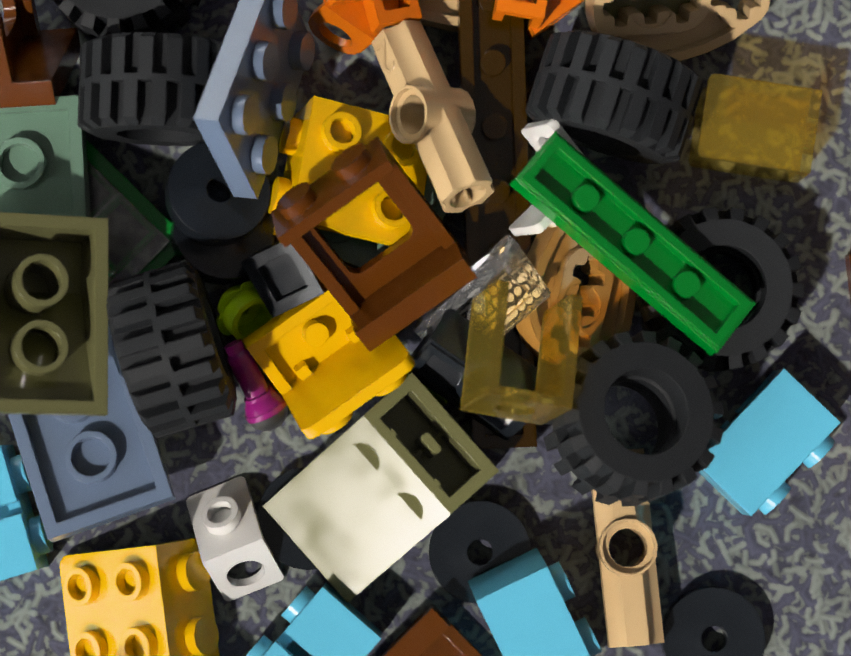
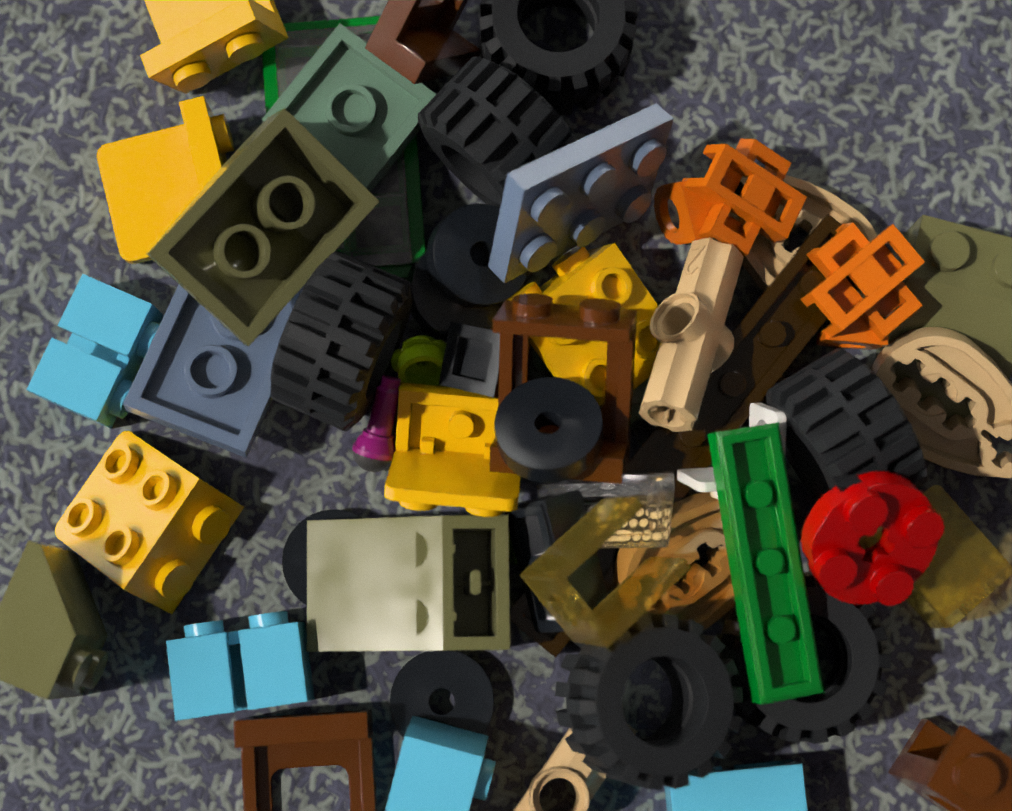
camera: 35 degrees right, 5 degrees down
(231, 534) = (263, 522): white bracket -> none
(410, 298) = (554, 455): none -> black piece
(727, 164) = (891, 565): none -> red plate

